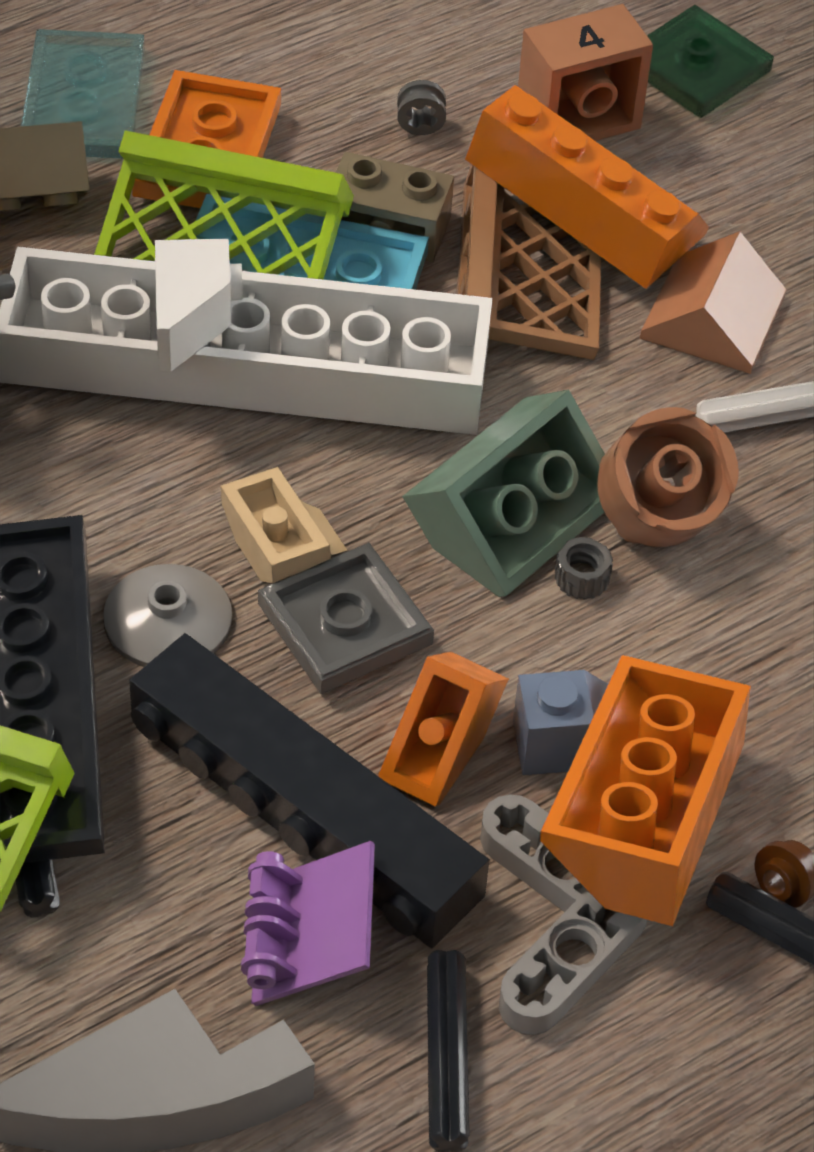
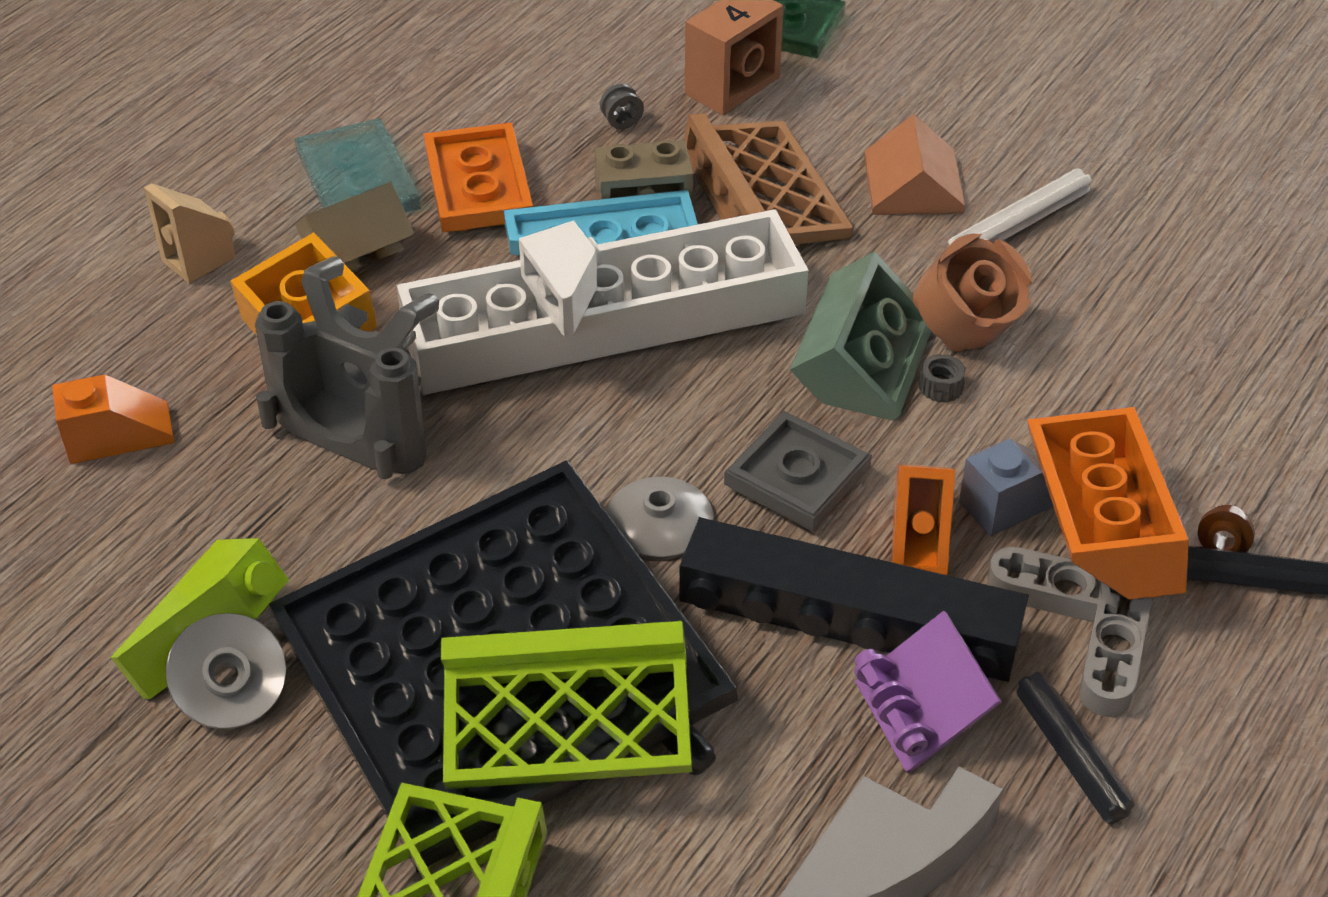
camera: 20 degrees left, 5 degrees down
(229, 175) = (522, 187): lime fence -> none
(276, 527) = (706, 424): tan slope -> none
(583, 187) = (784, 116): orange slope -> none

